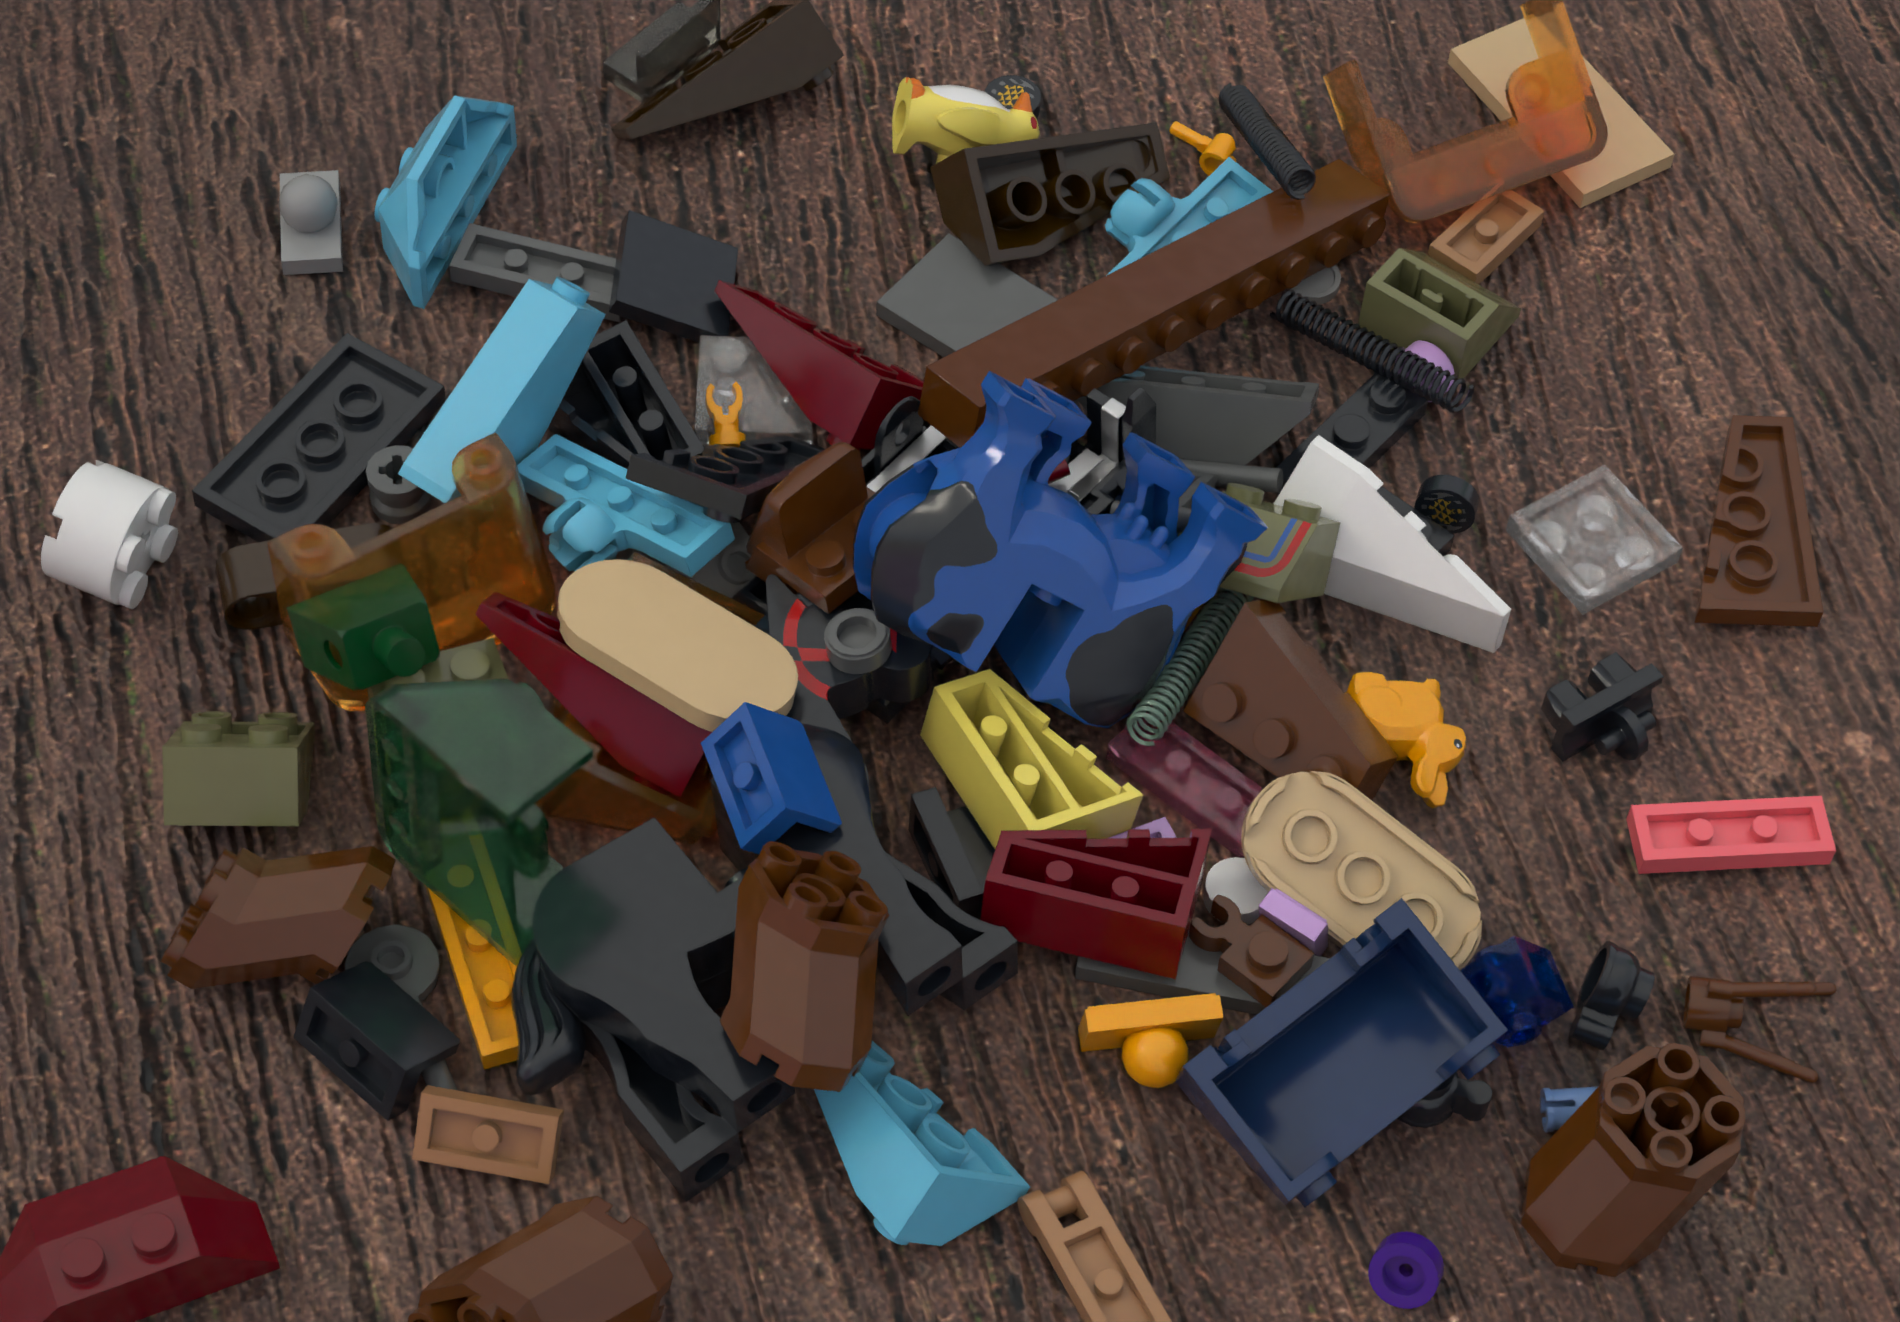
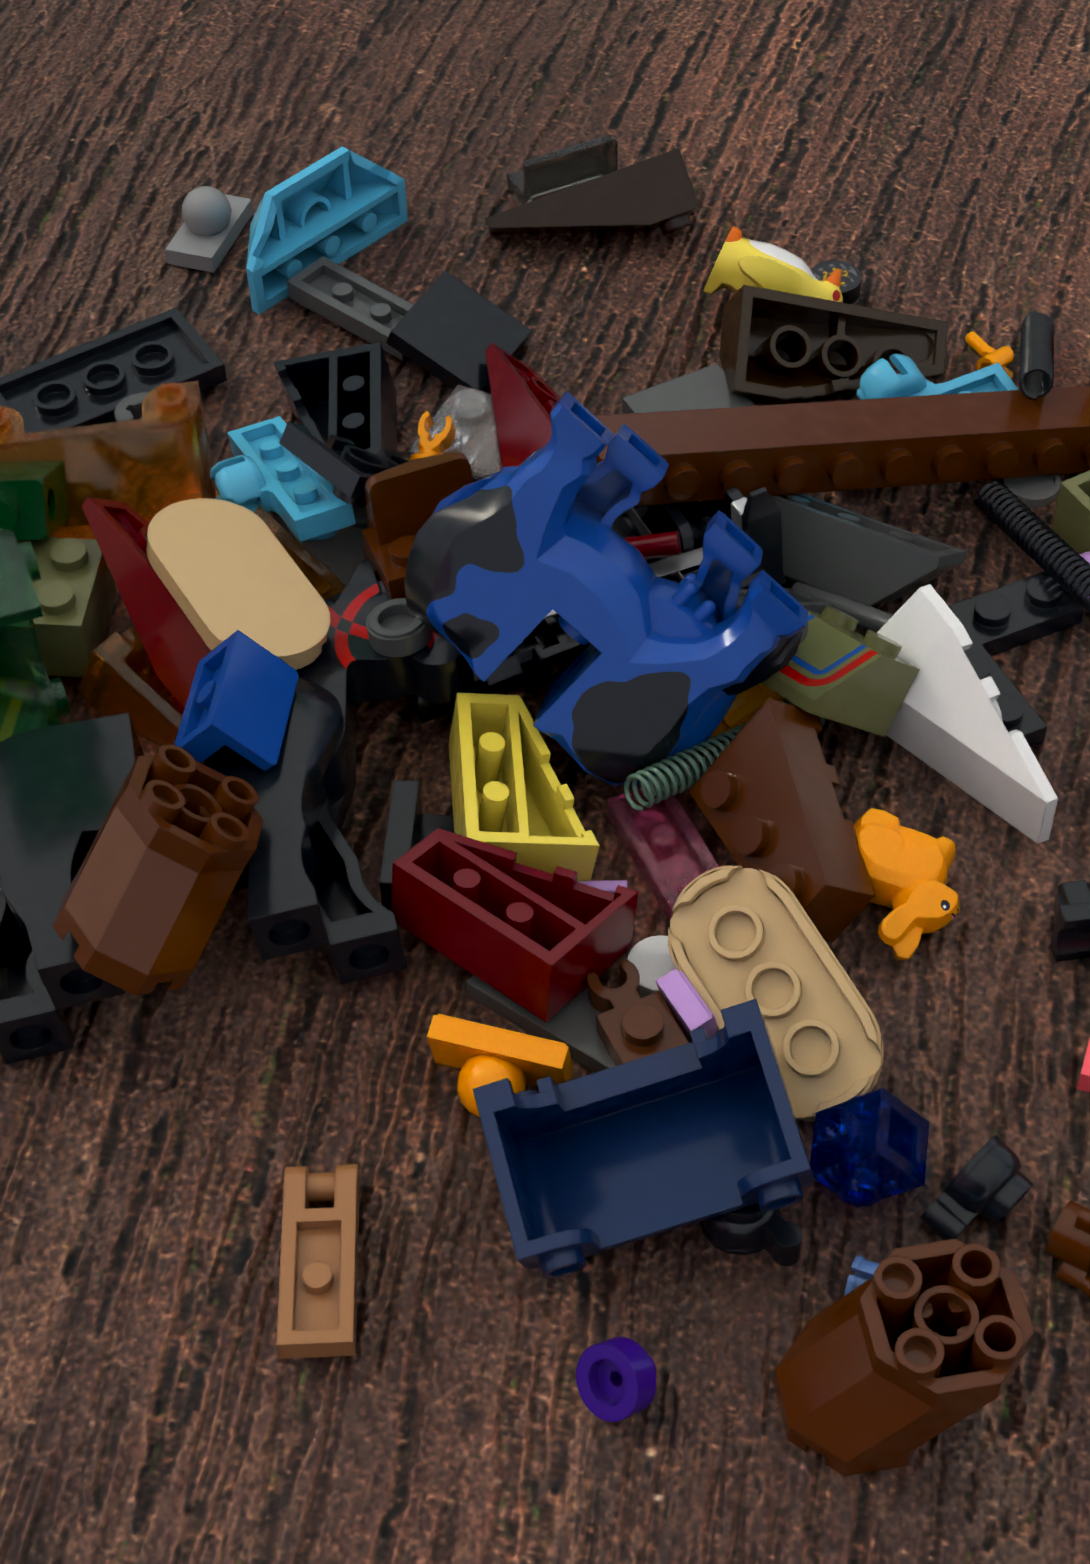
camera: 30 degrees right, 5 degrees down
(510, 383) = (253, 356): medium azure slope -> none
(909, 1162) = (208, 1081): medium azure wedge -> none
(1448, 502) = (1054, 695): black tile -> none

